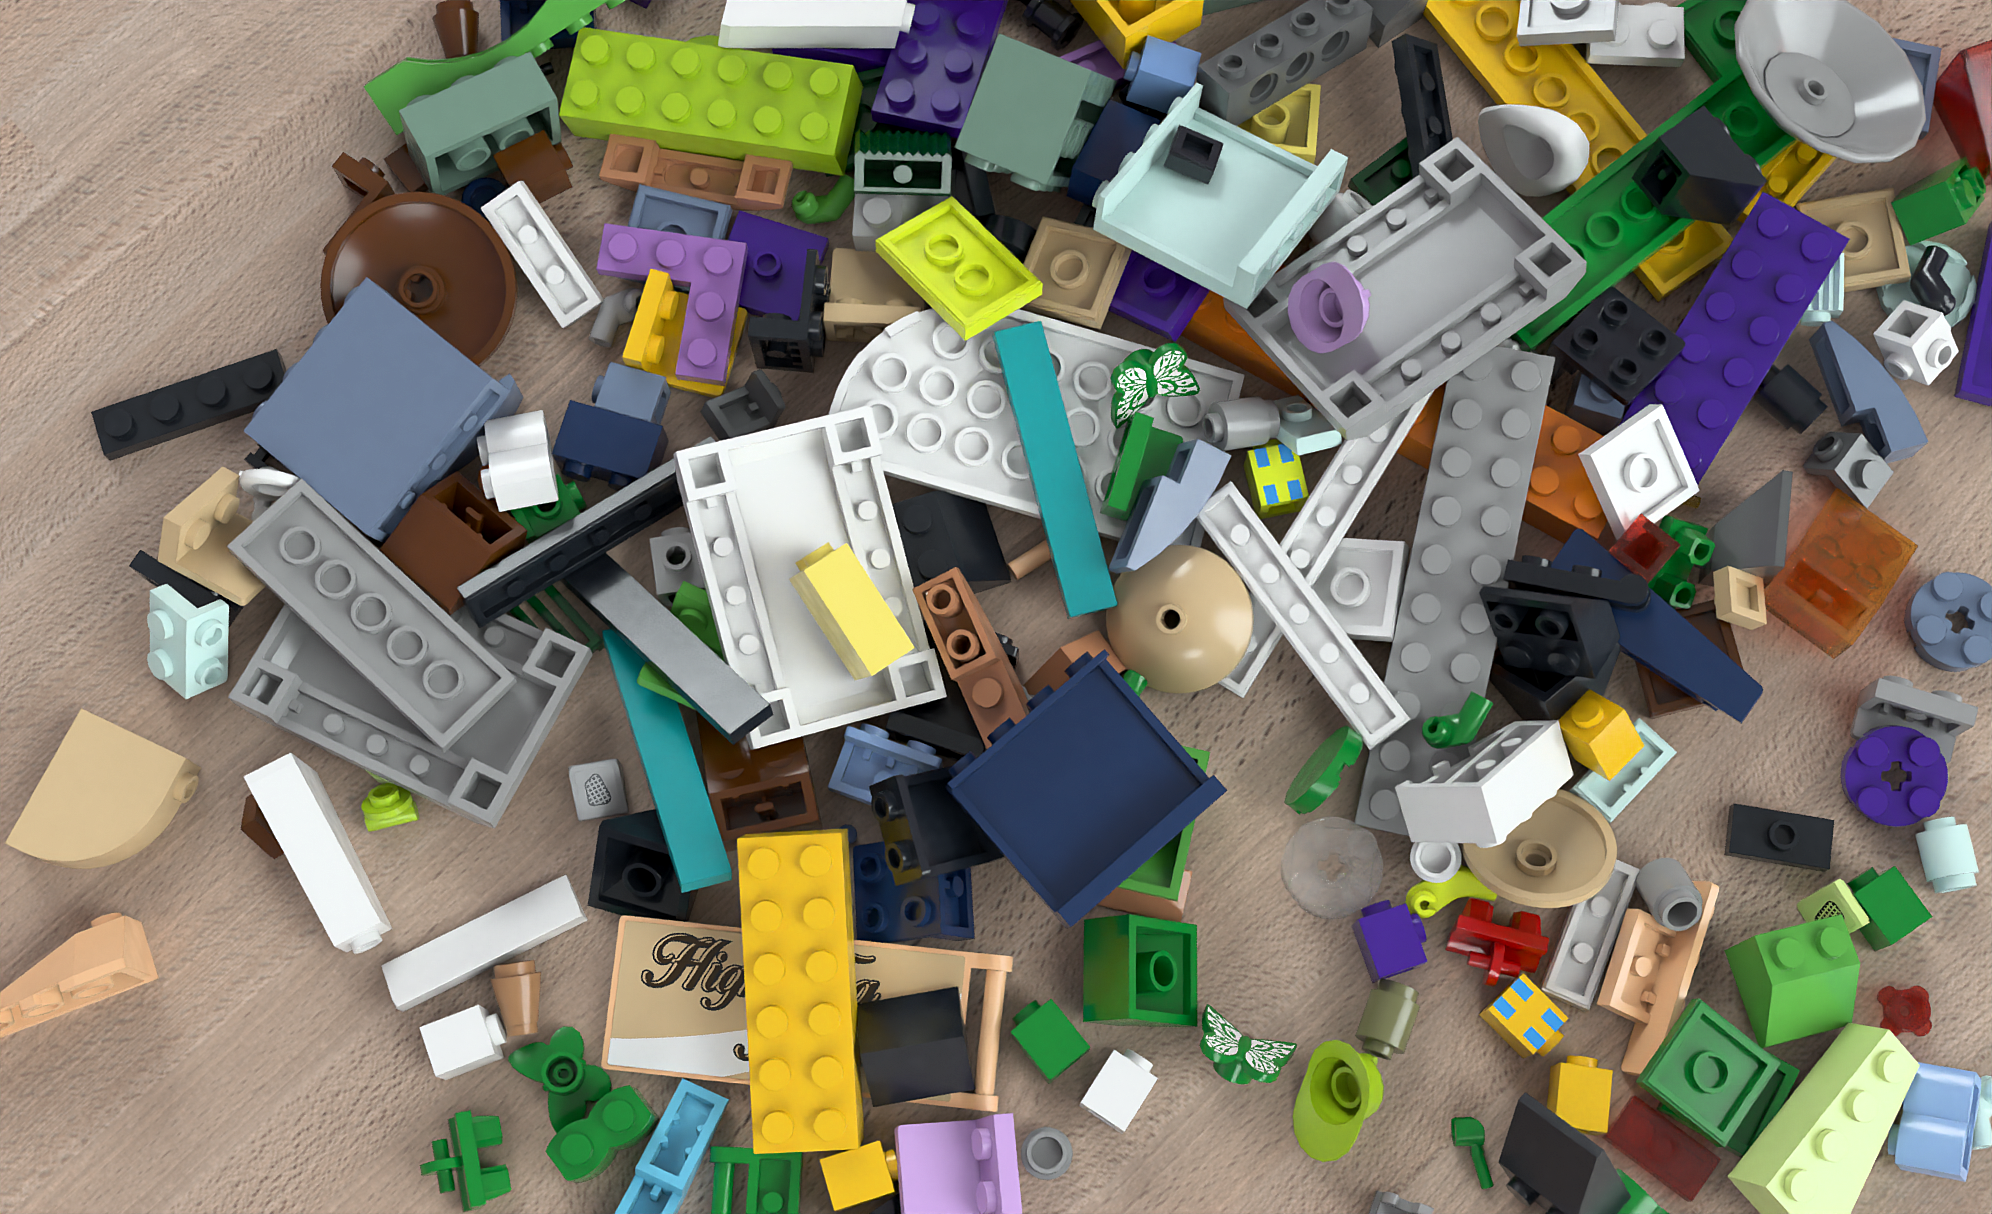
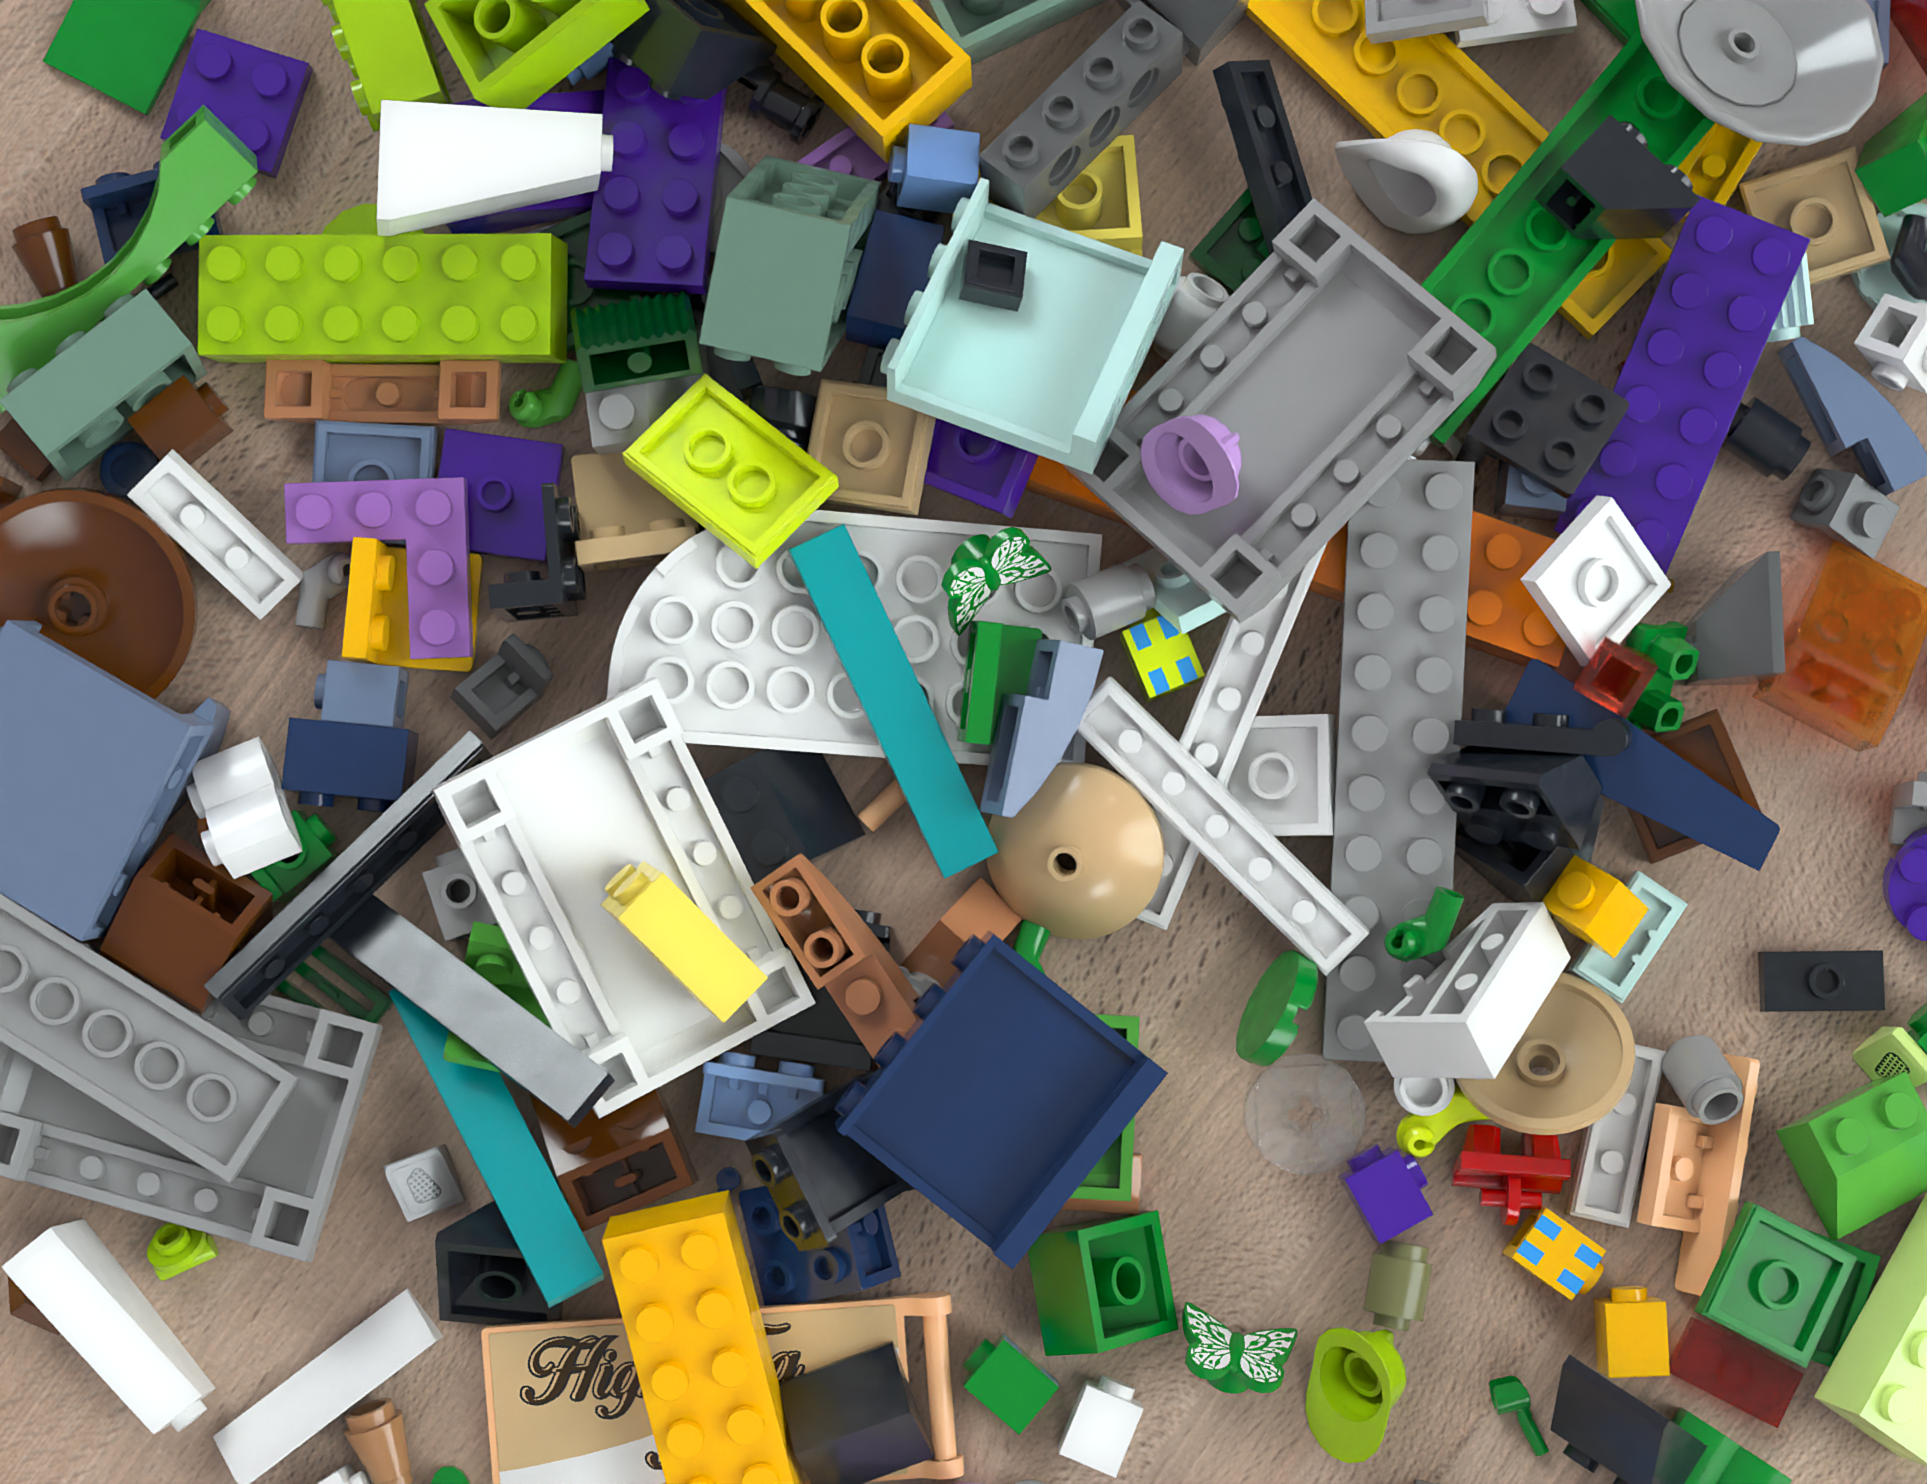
camera: 10 degrees left, 10 degrees up
(1739, 598) = (1737, 710): tan plate -> none

